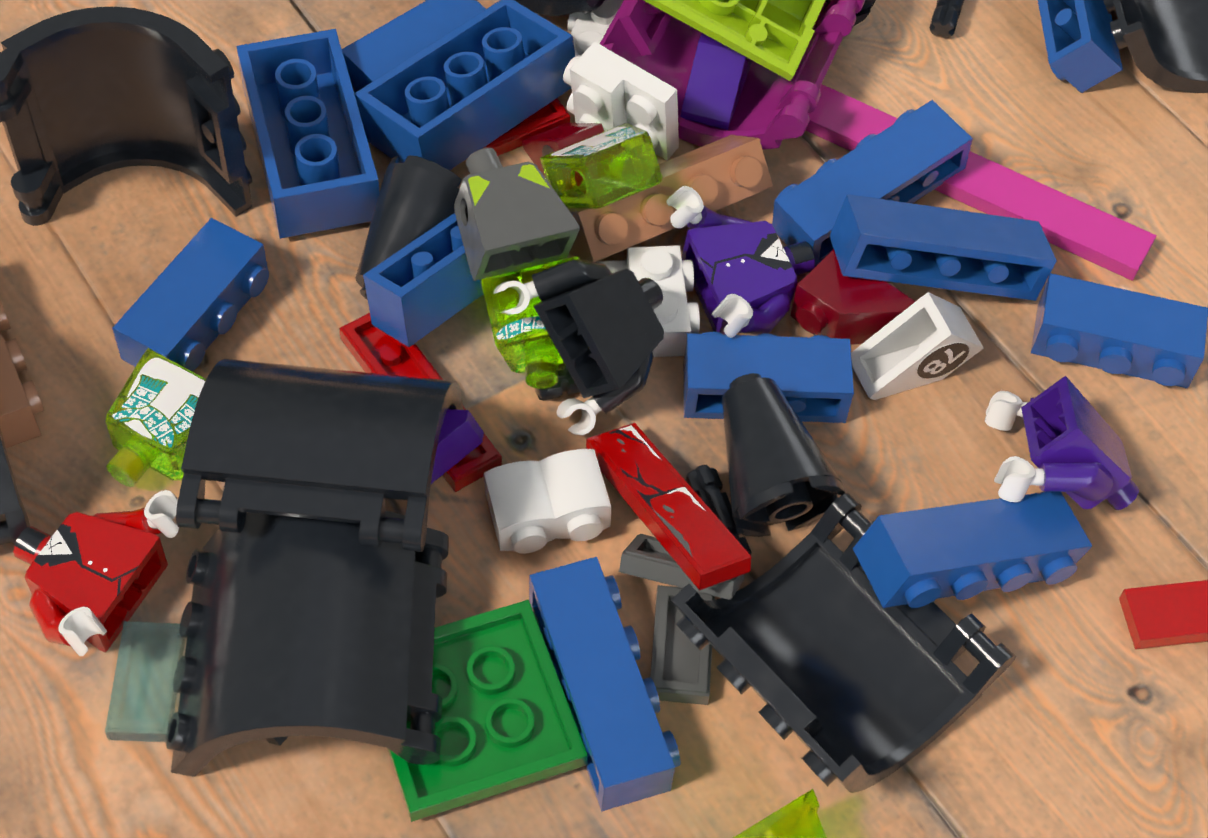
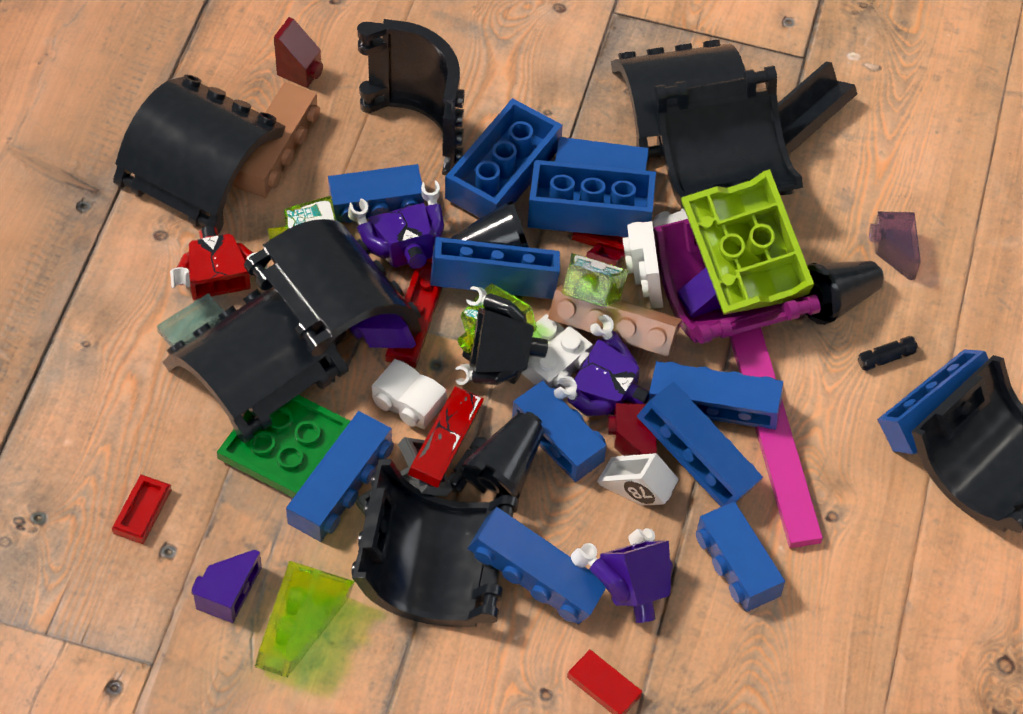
camera: 50 degrees right, 0 degrees up
(297, 312) = (402, 234): none -> dark purple torso
(510, 217) = (514, 262): dark grey torso -> none

